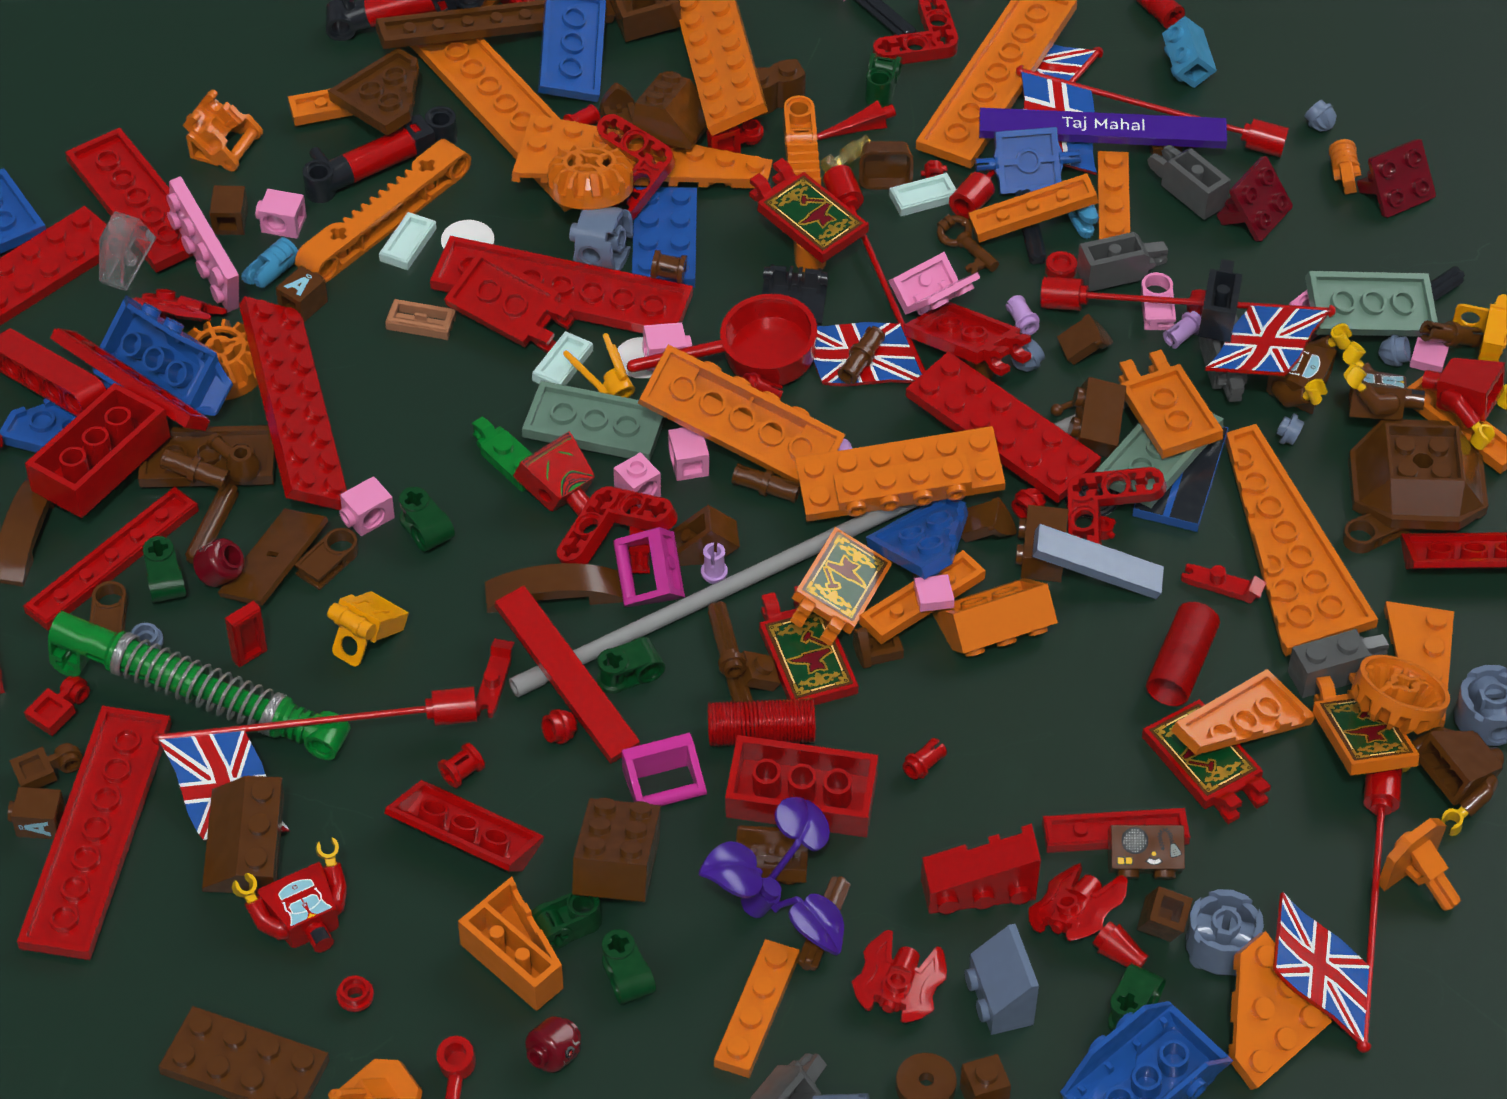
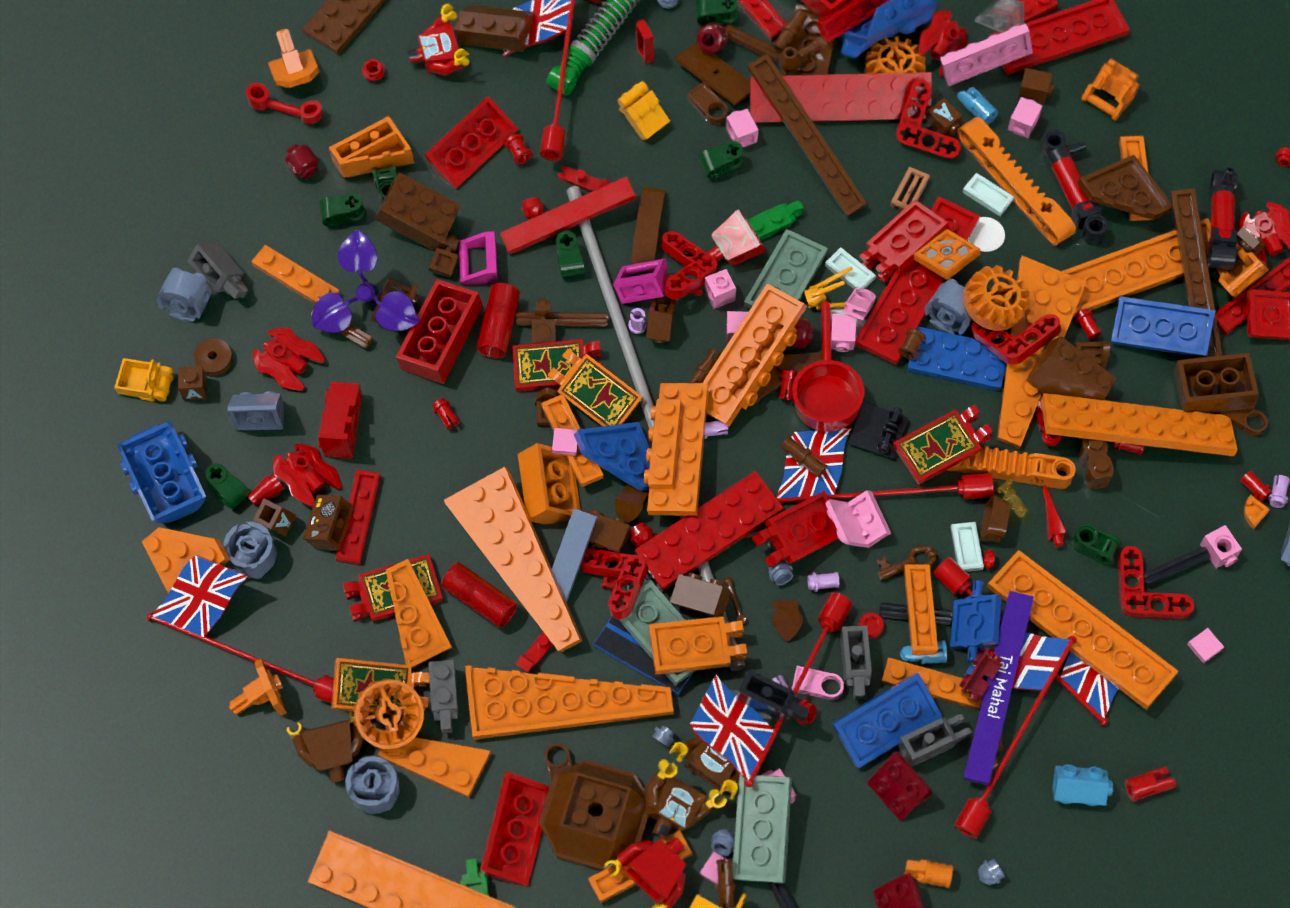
camera: 105 degrees right, 15 degrees up
(322, 316) = (915, 124): none -> red beam
(371, 418) = (806, 135): none -> reddish brown plate
(530, 243) = (947, 254): none -> orange piece
(622, 328) = (859, 303): none -> bright pink piece
(680, 815) = (443, 260): none -> reddish brown plate
(1083, 644) = (504, 533): none -> wing
(1087, 137) = (974, 683): none -> dark red hinge
(1182, 224) = (885, 719): none -> blue plate

